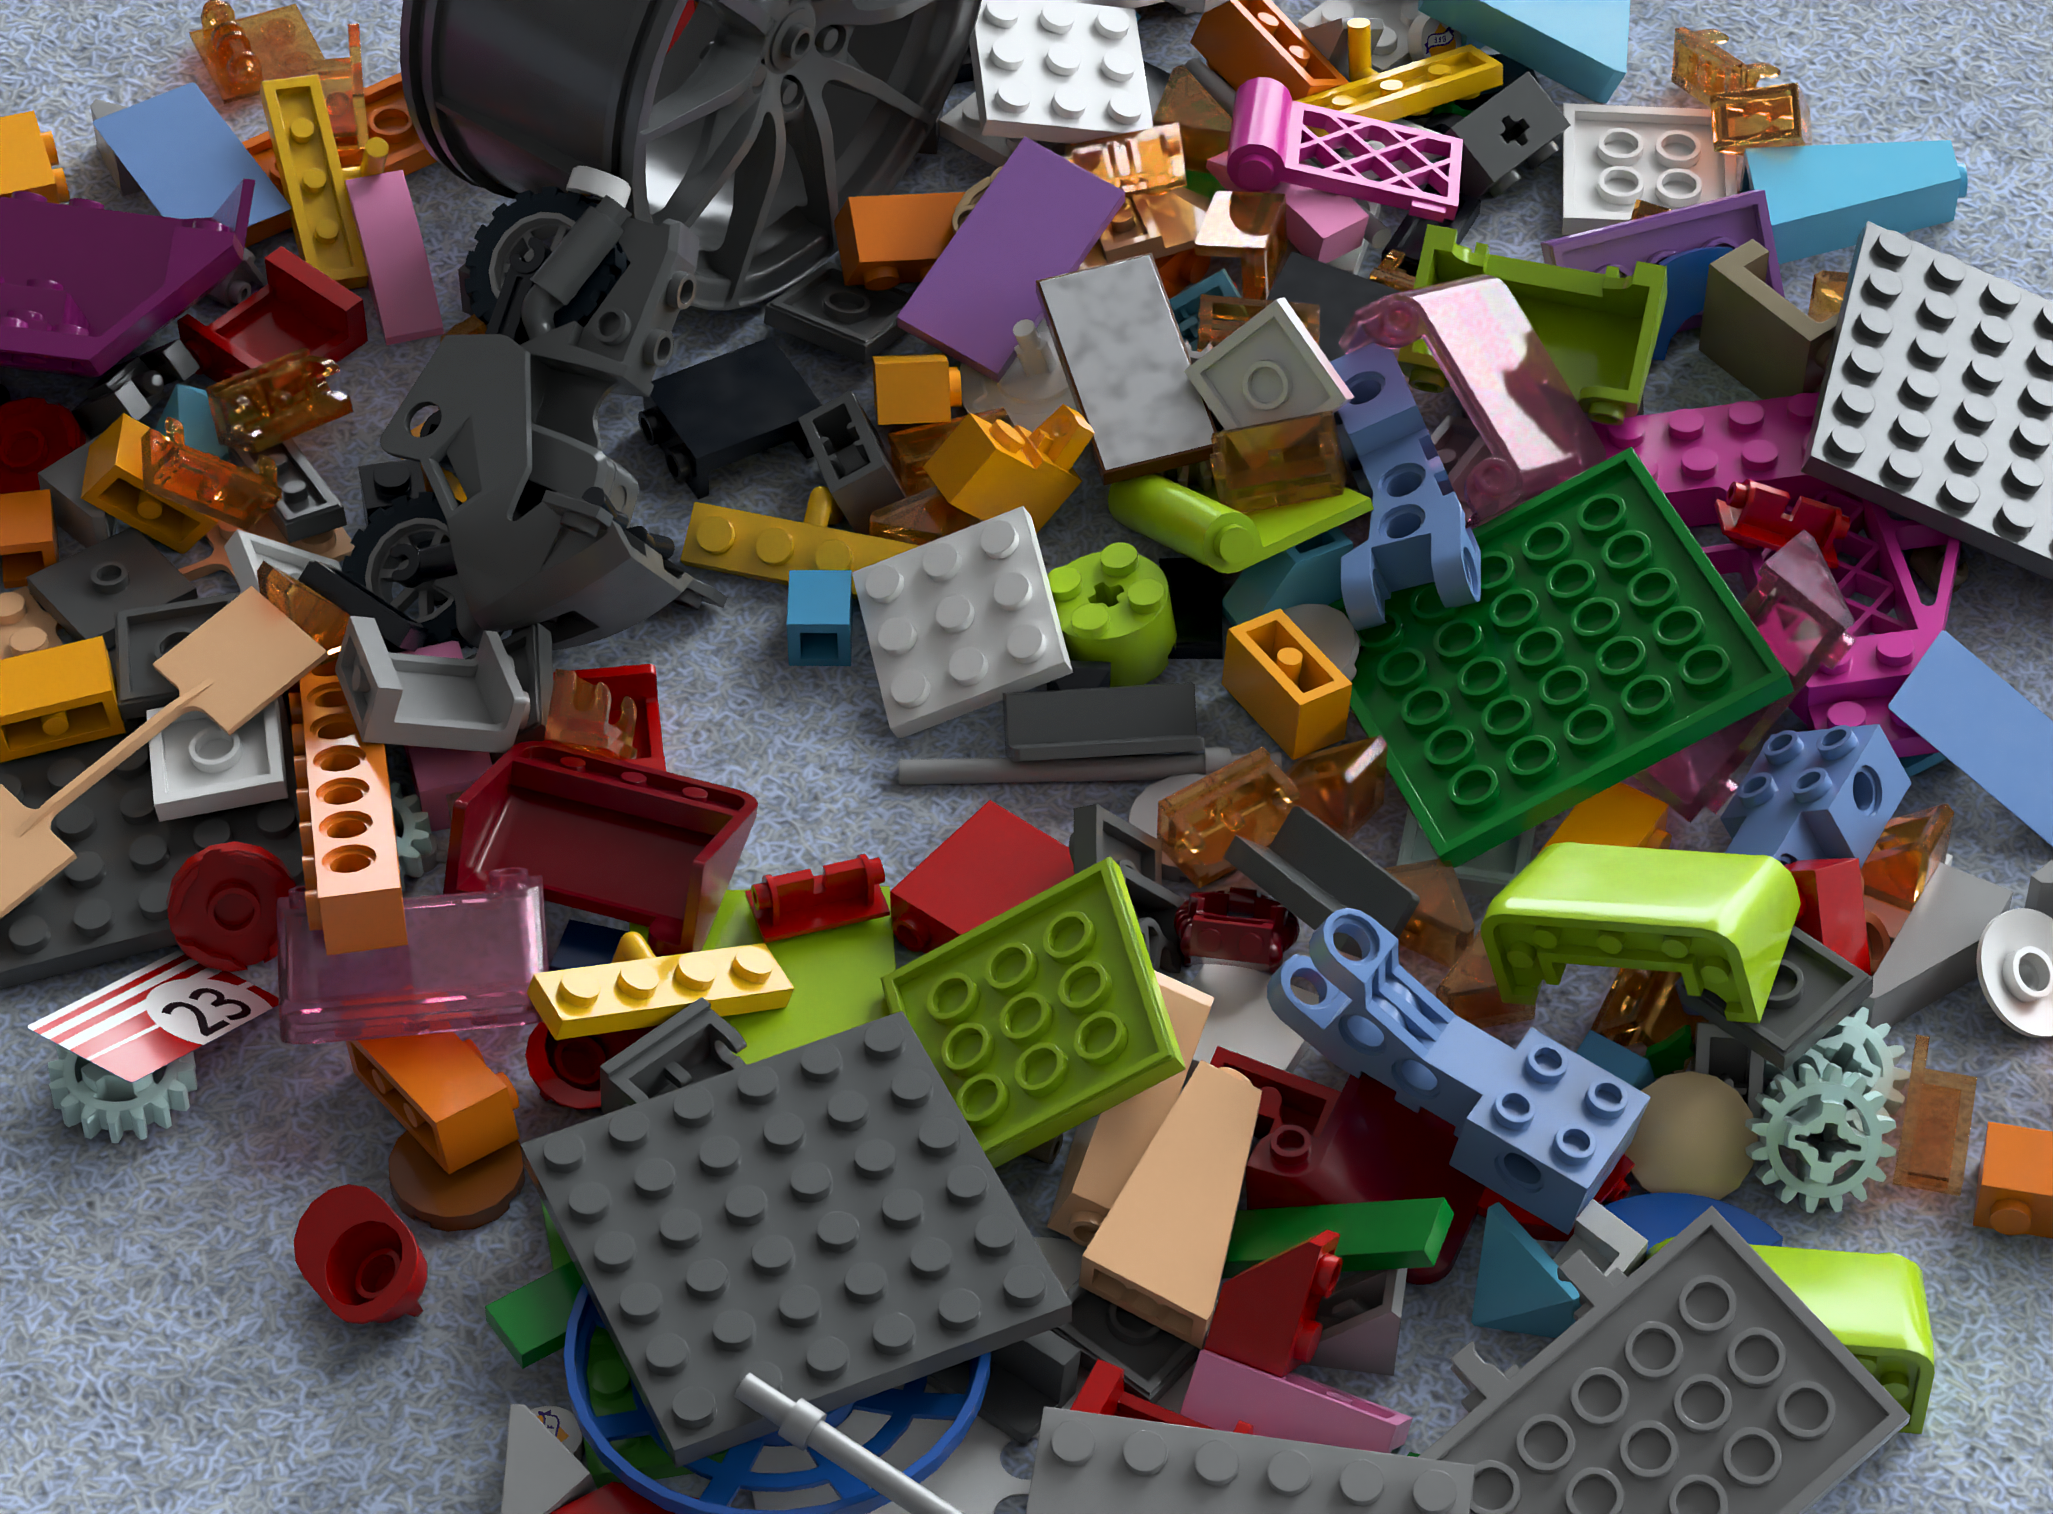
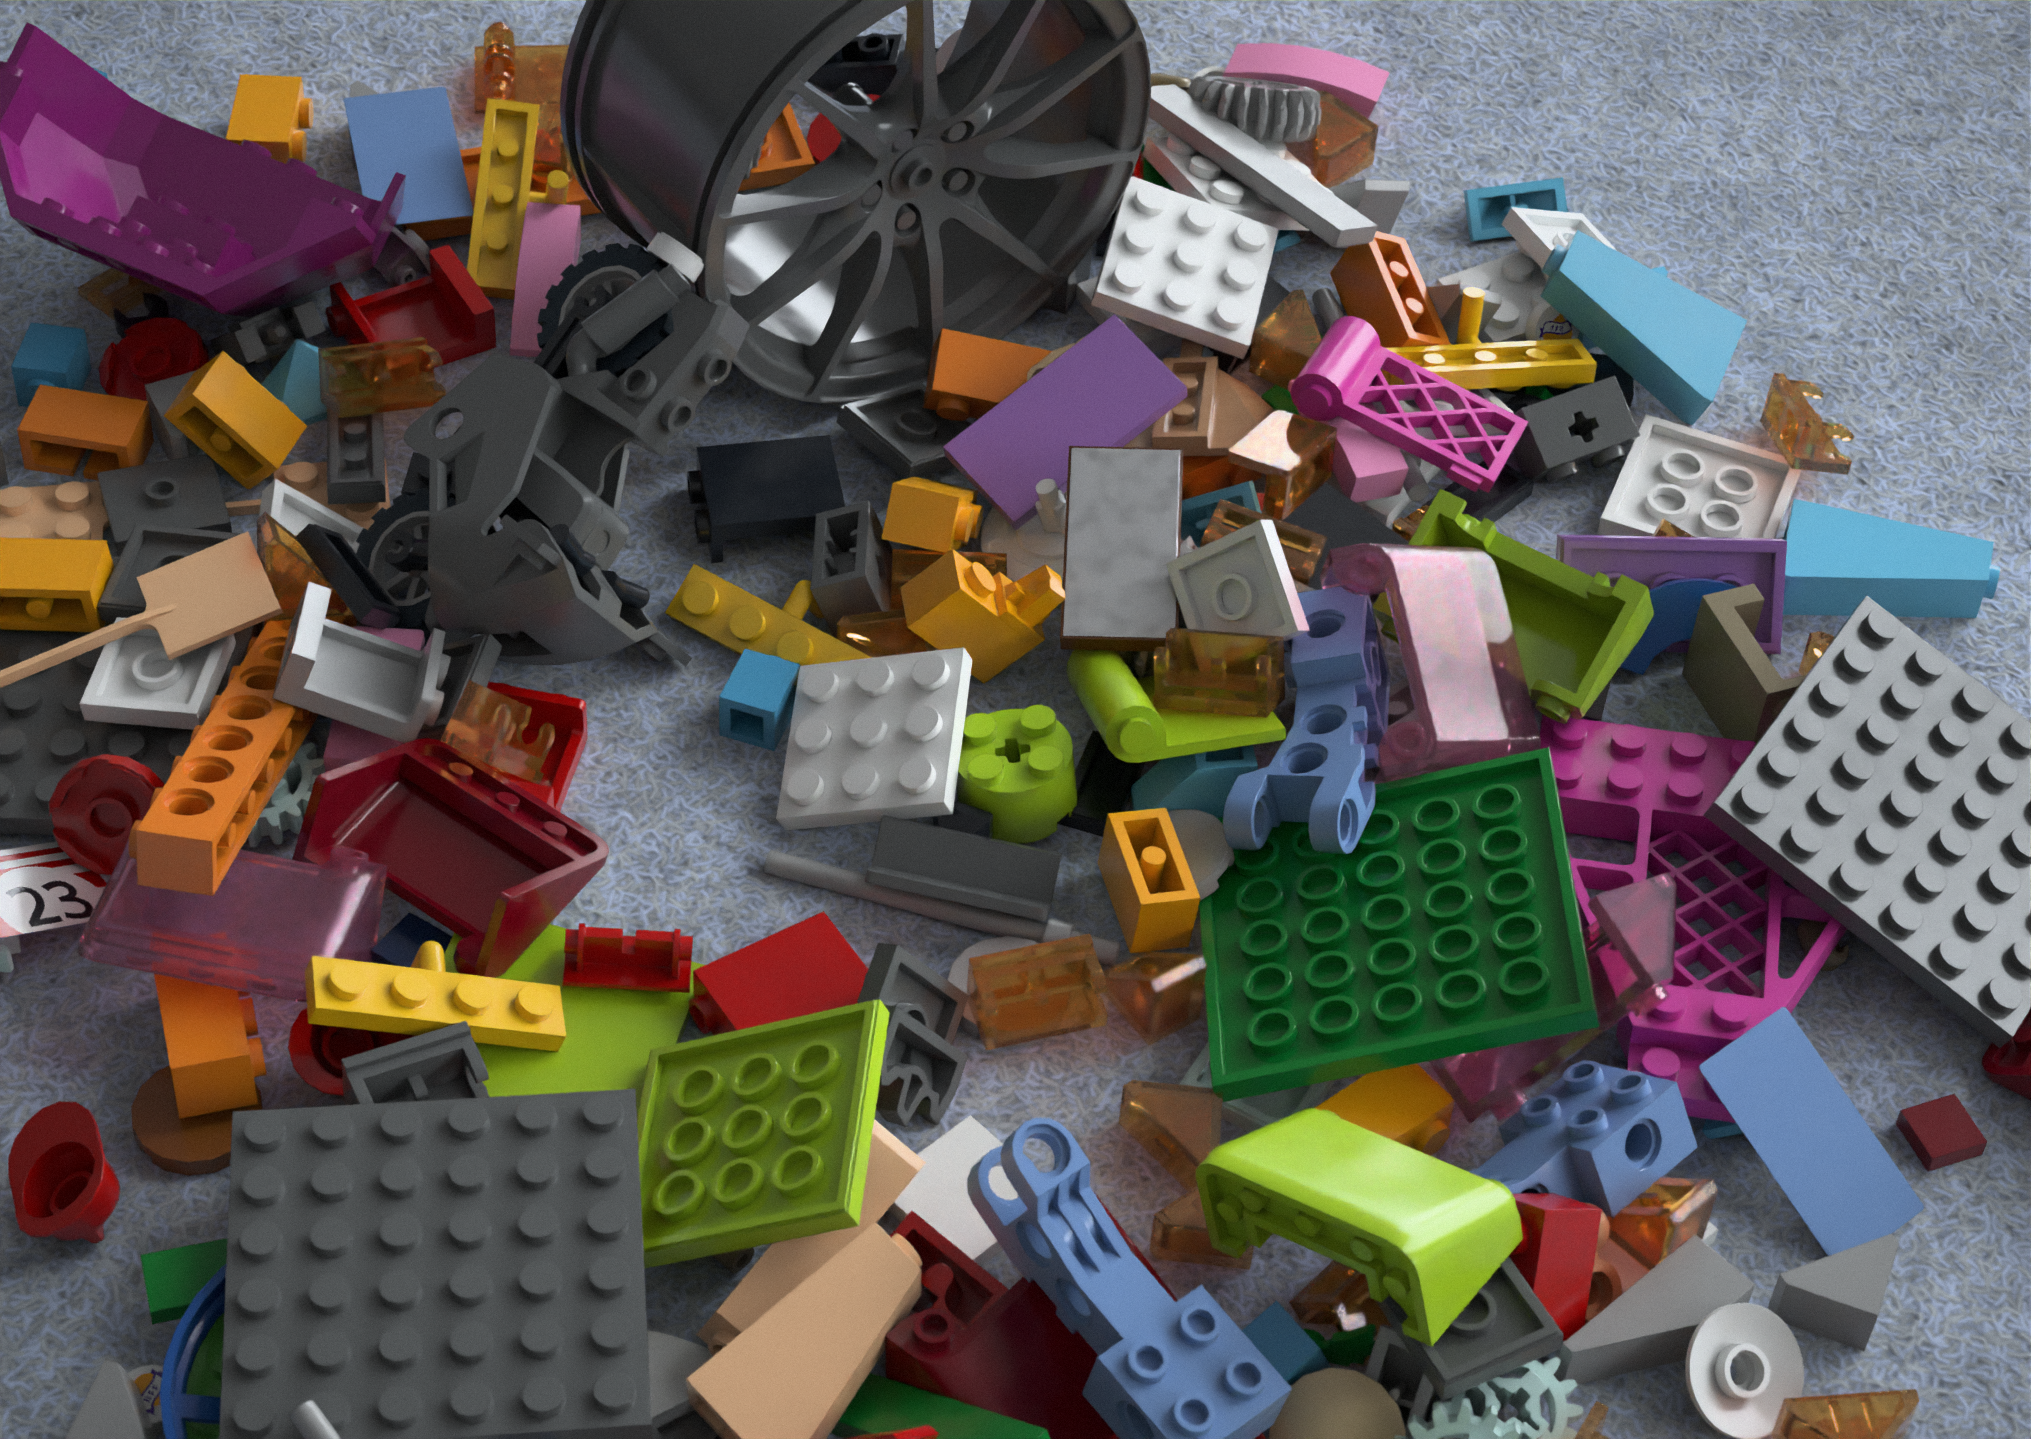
camera: 15 degrees right, 0 degrees up
(205, 480) = (276, 429): clear orange hinge -> none
(1135, 161) = (1213, 363): clear orange hinge -> none
(1219, 939) = (989, 1112): dark red piece -> none
(1321, 872) = (1095, 1084): dark grey panel -> none
(1756, 518) = (1647, 848): red hinge -> none
(1760, 118) = (1821, 476): clear orange slope -> none

